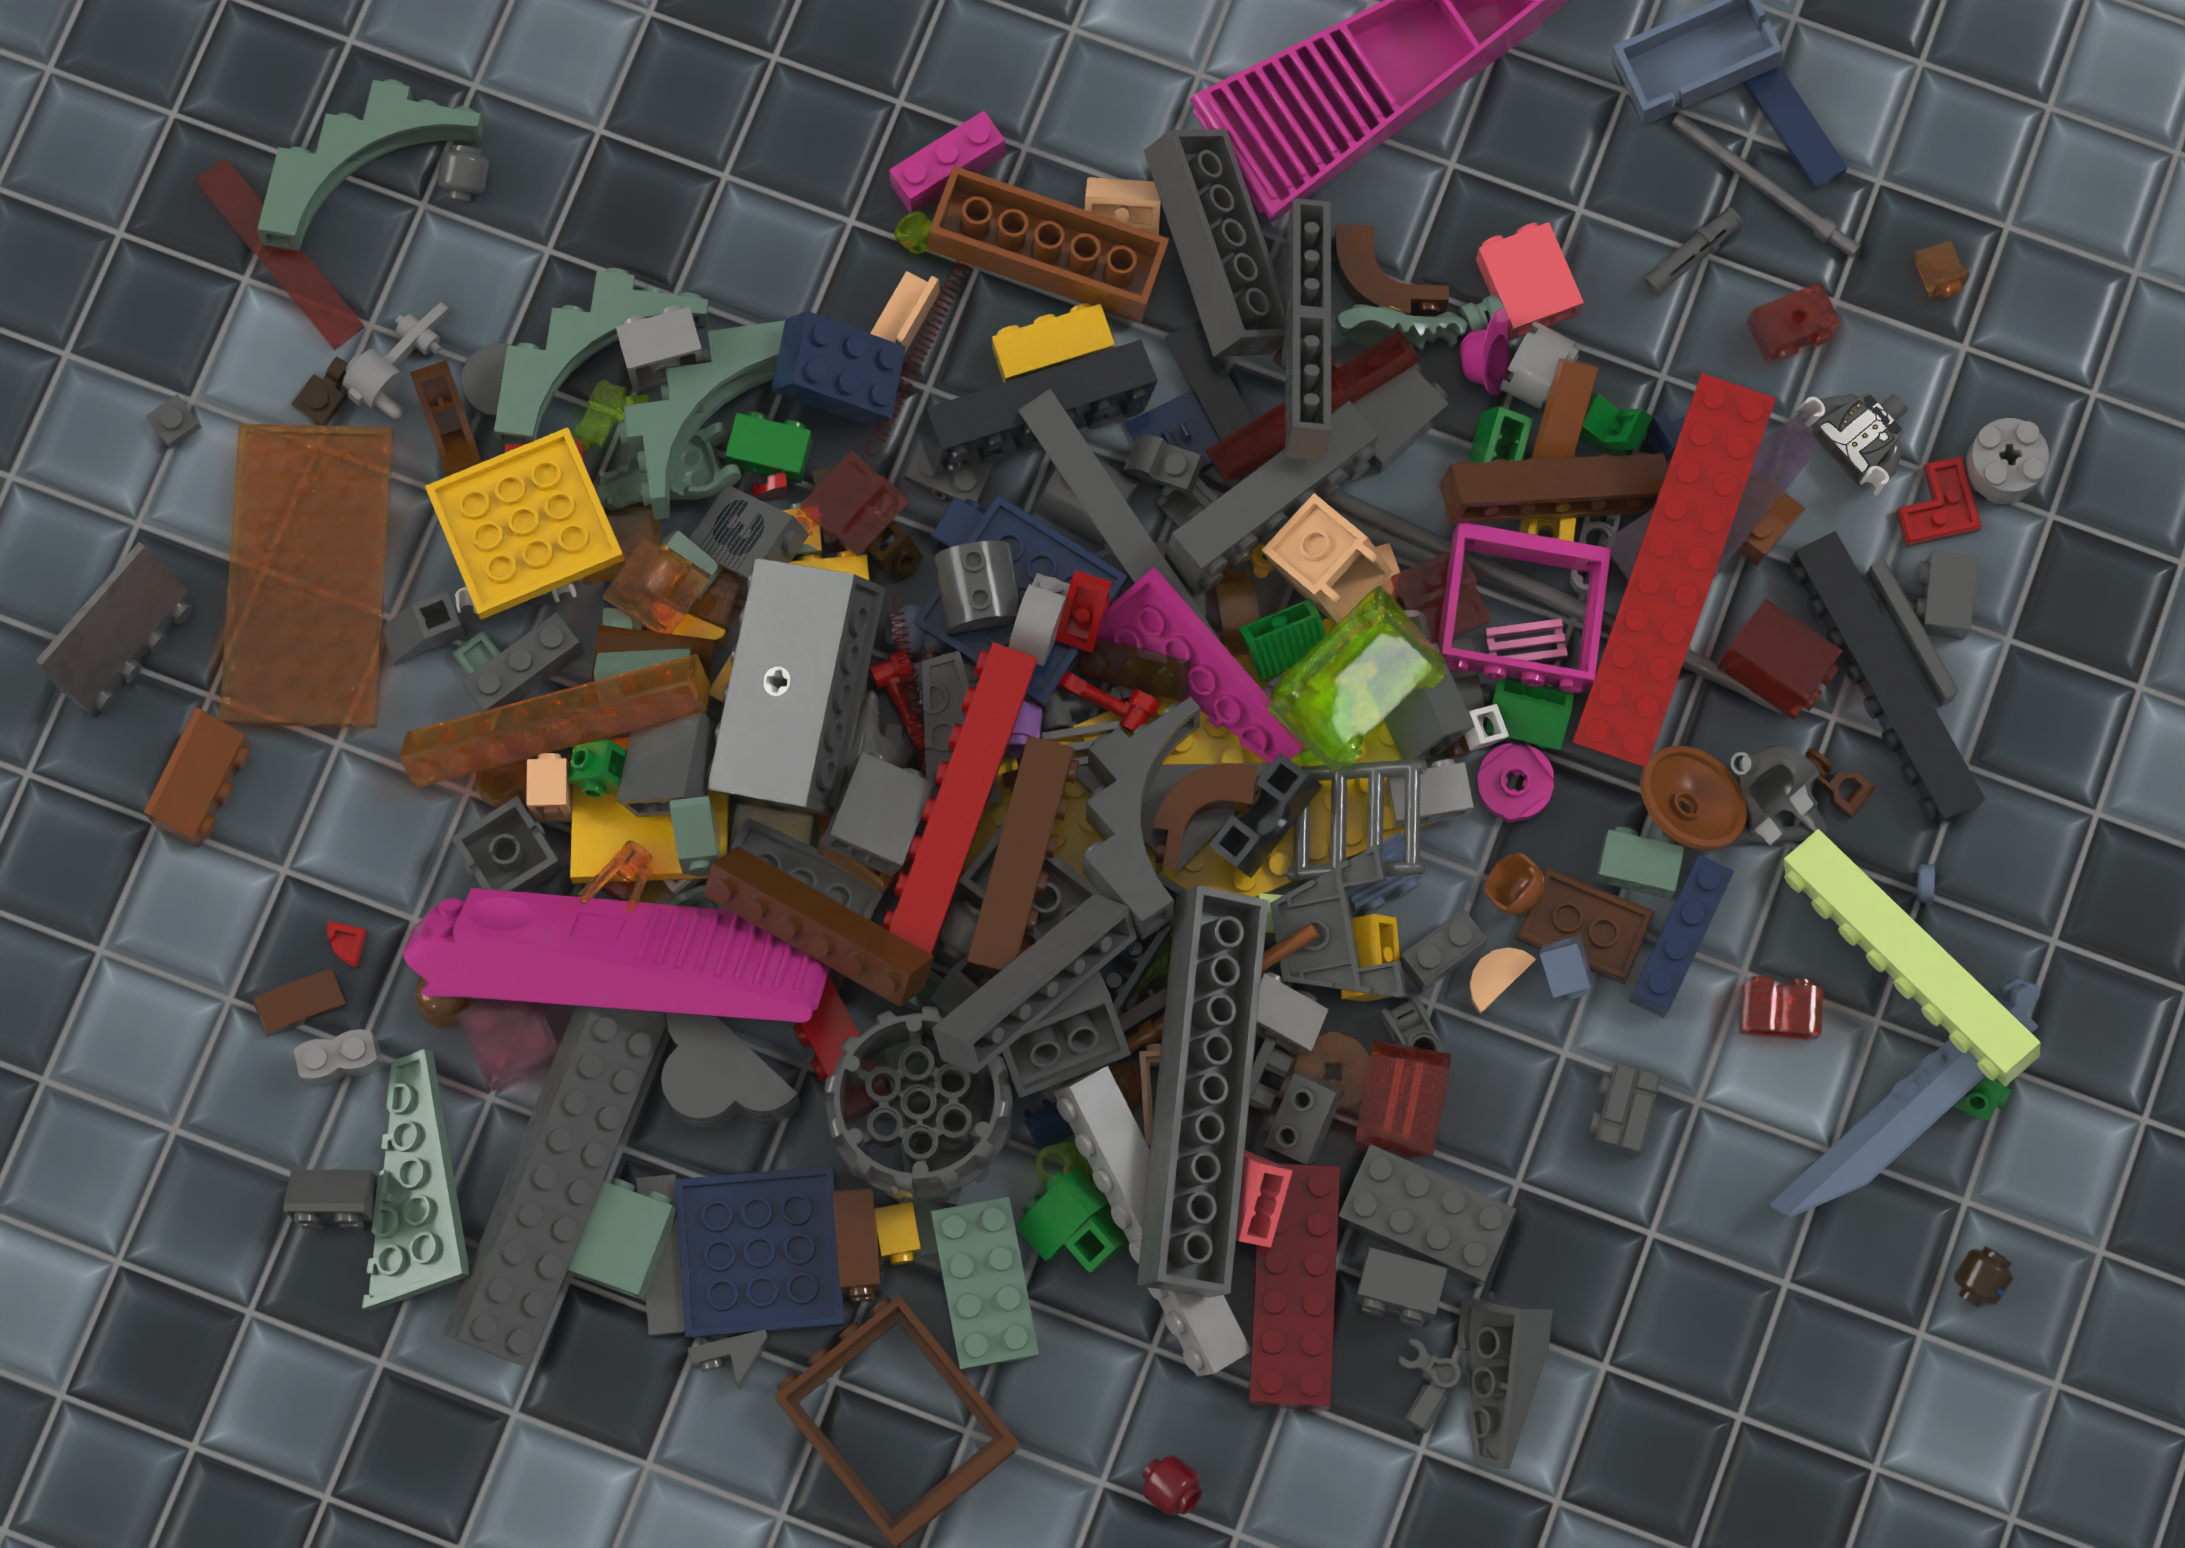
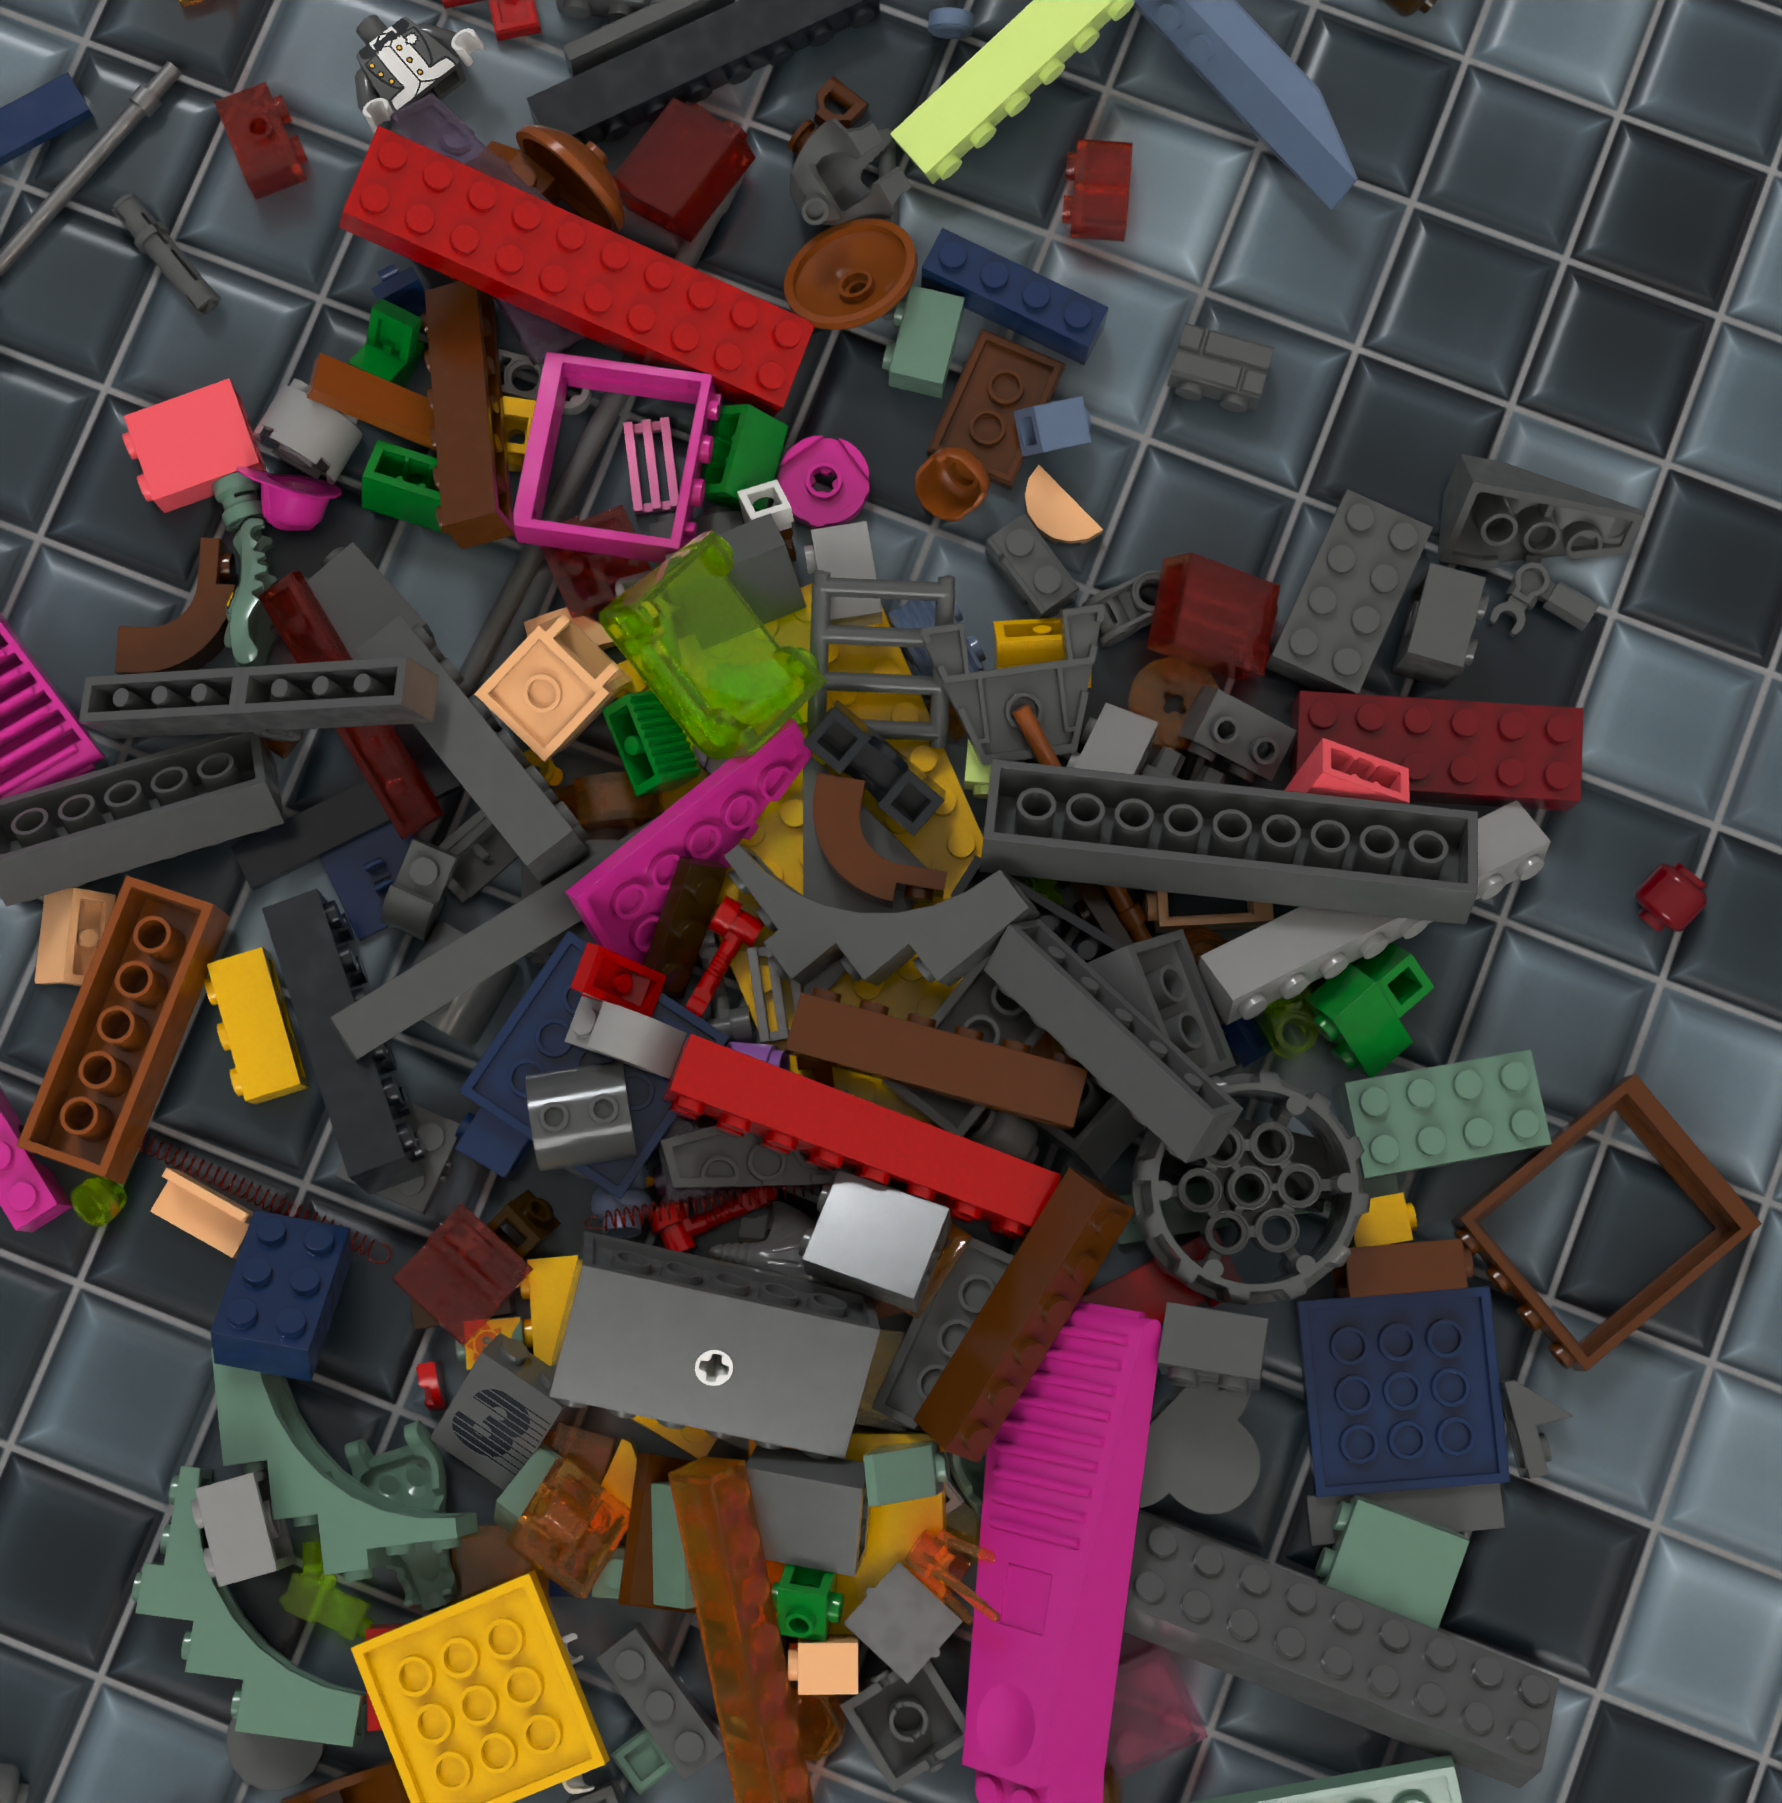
camera: 90 degrees left, 5 degrees up
(580, 843) = (903, 1622): none -> flat silver piece
(769, 446) = (379, 1385): green brick -> none
(792, 1062) = (1213, 1348): none -> dark grey brick
(1768, 570) = (579, 173): none -> dark orange dish

